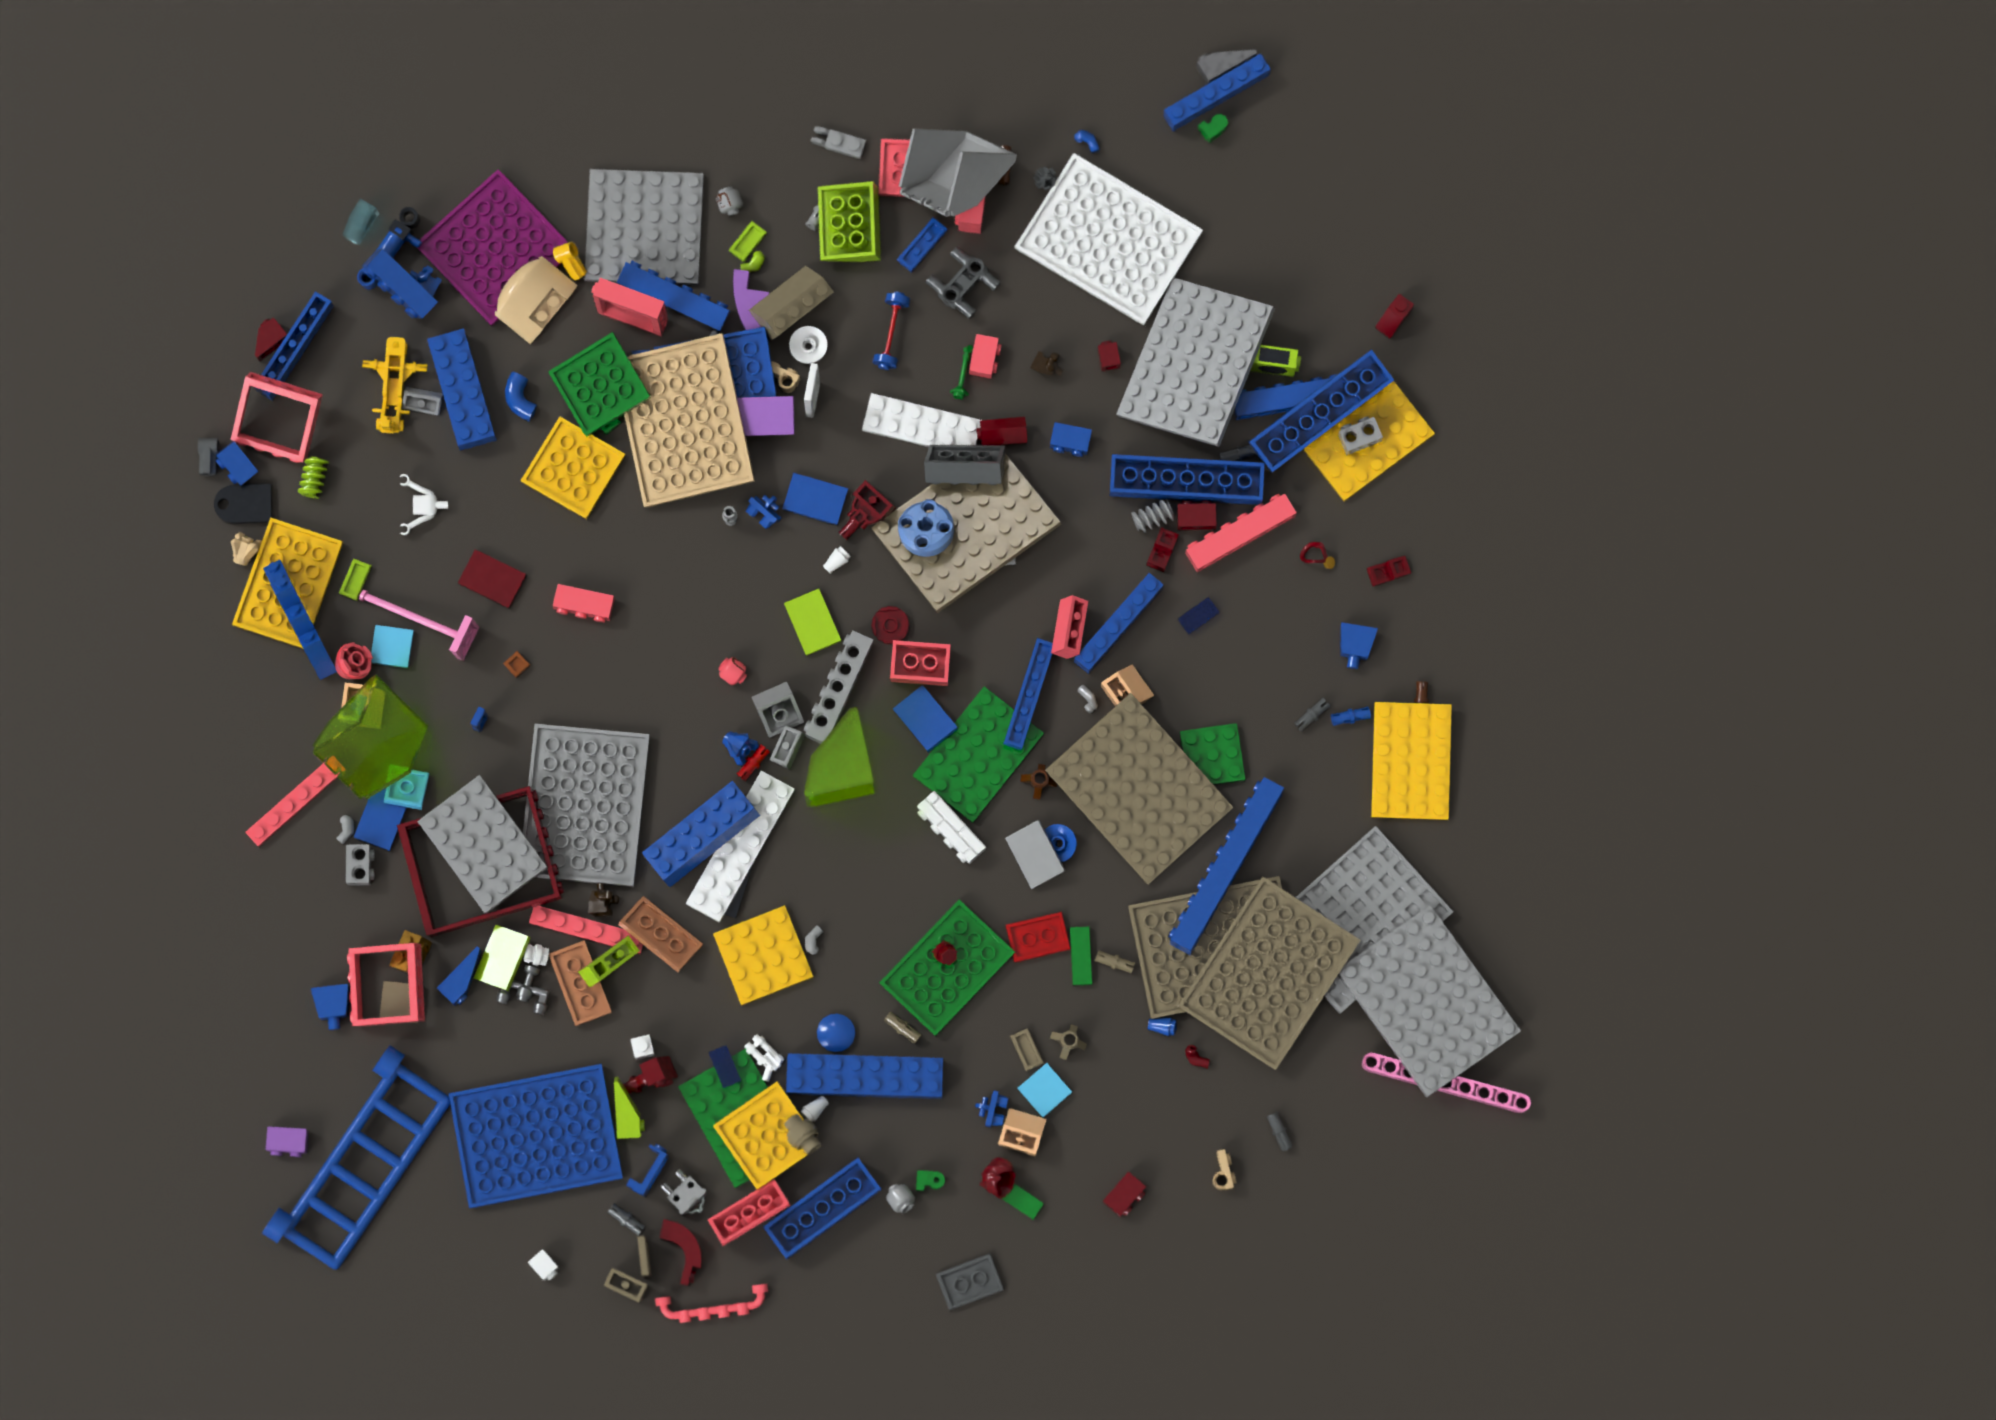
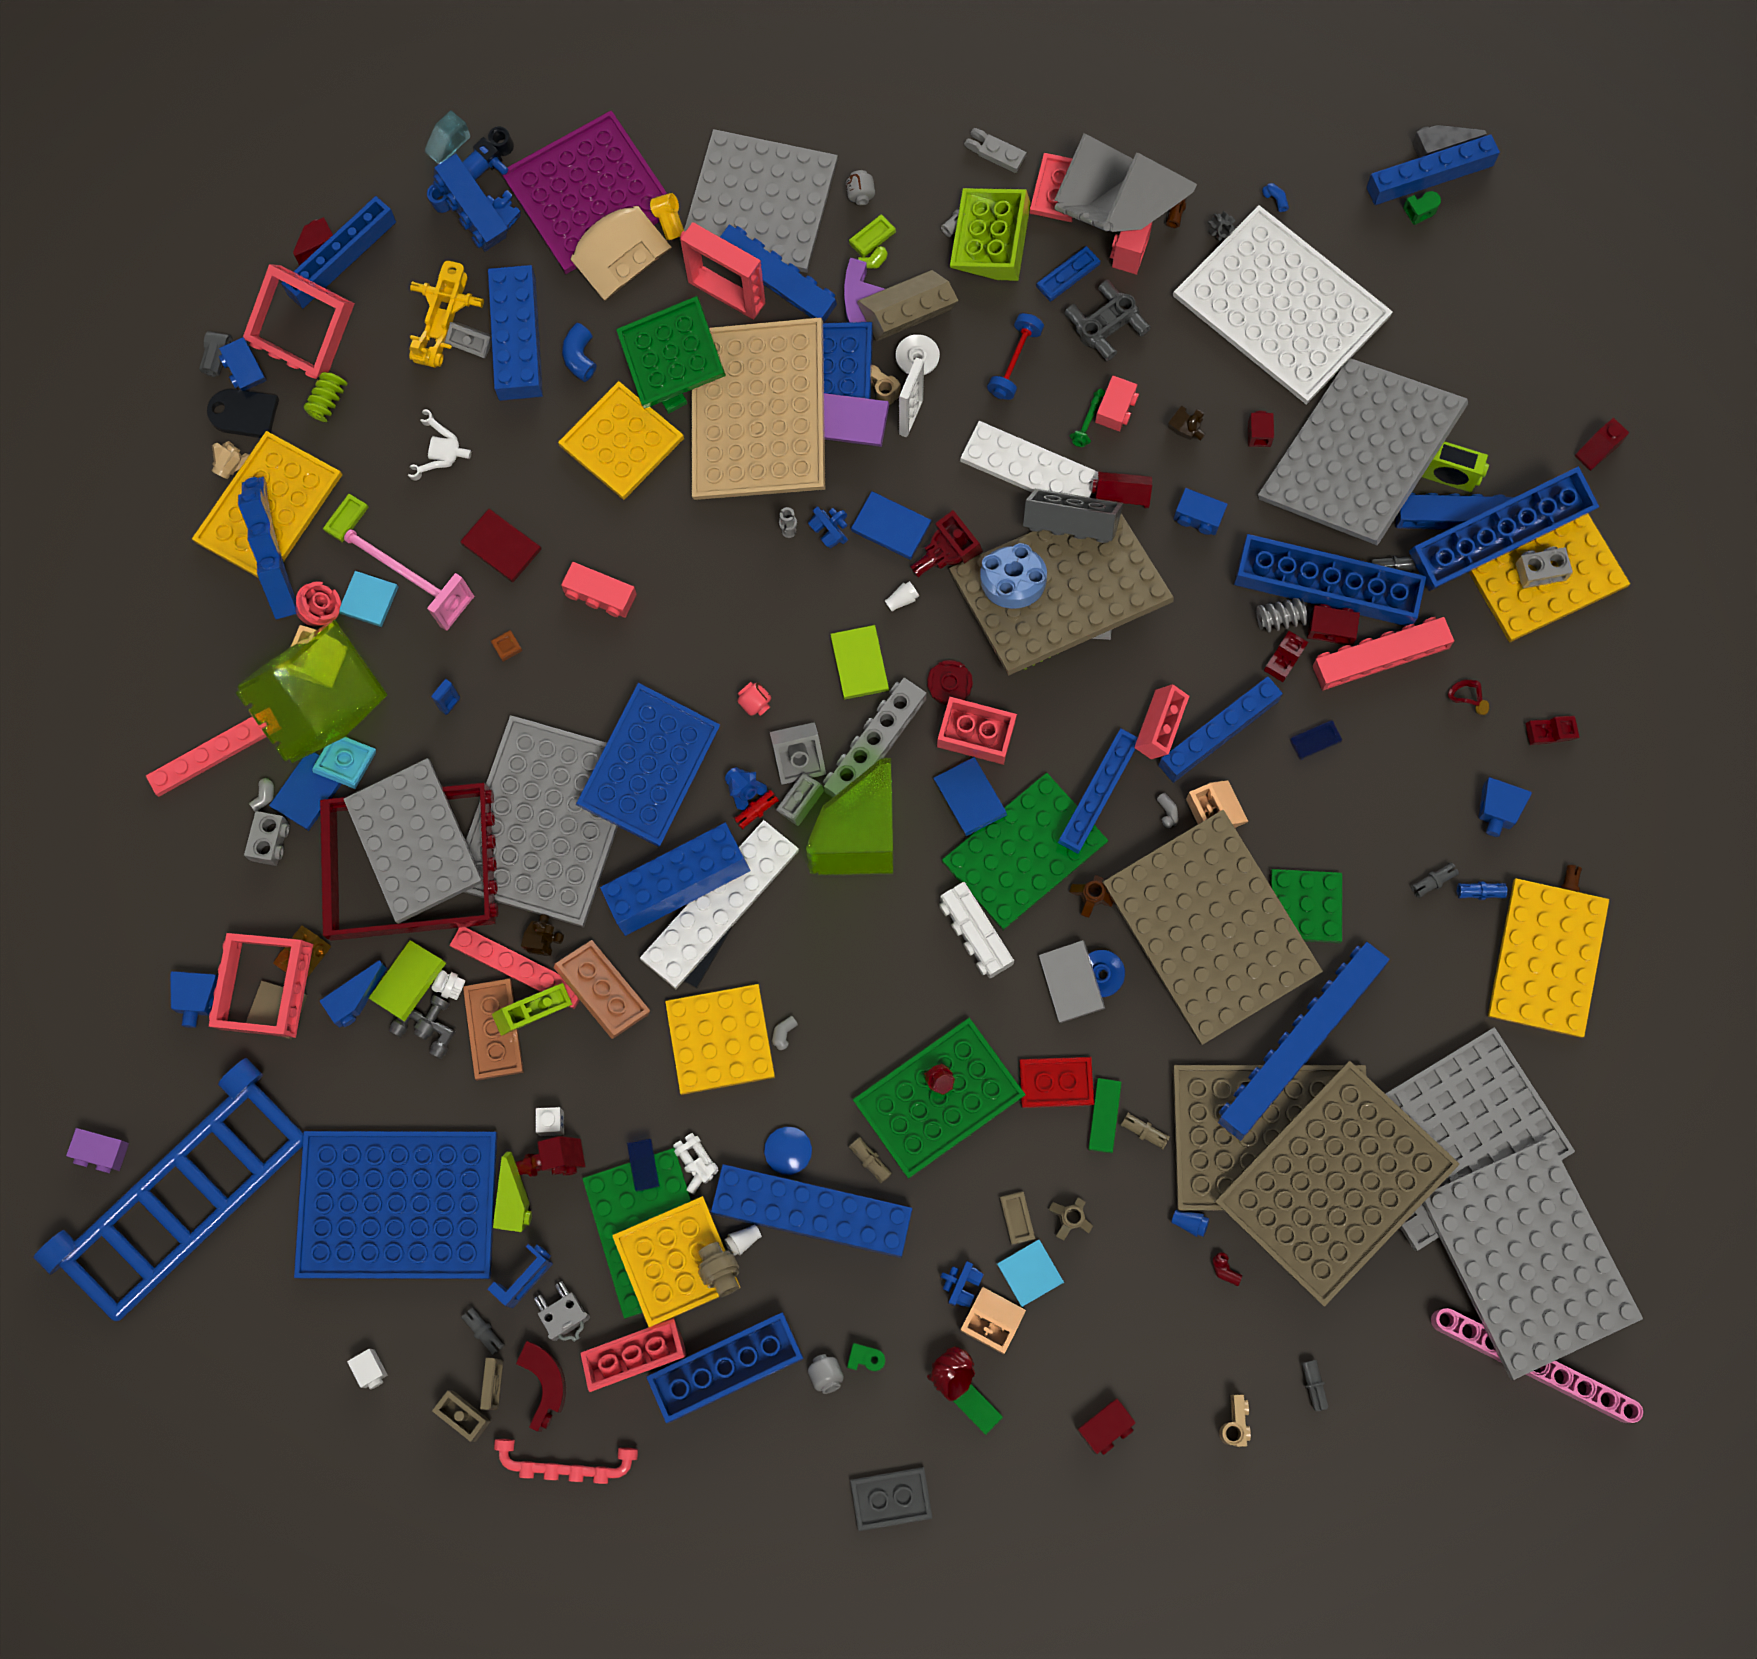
camera: 15 degrees right, 5 degrees down
(658, 743) = (648, 765): none -> blue plate

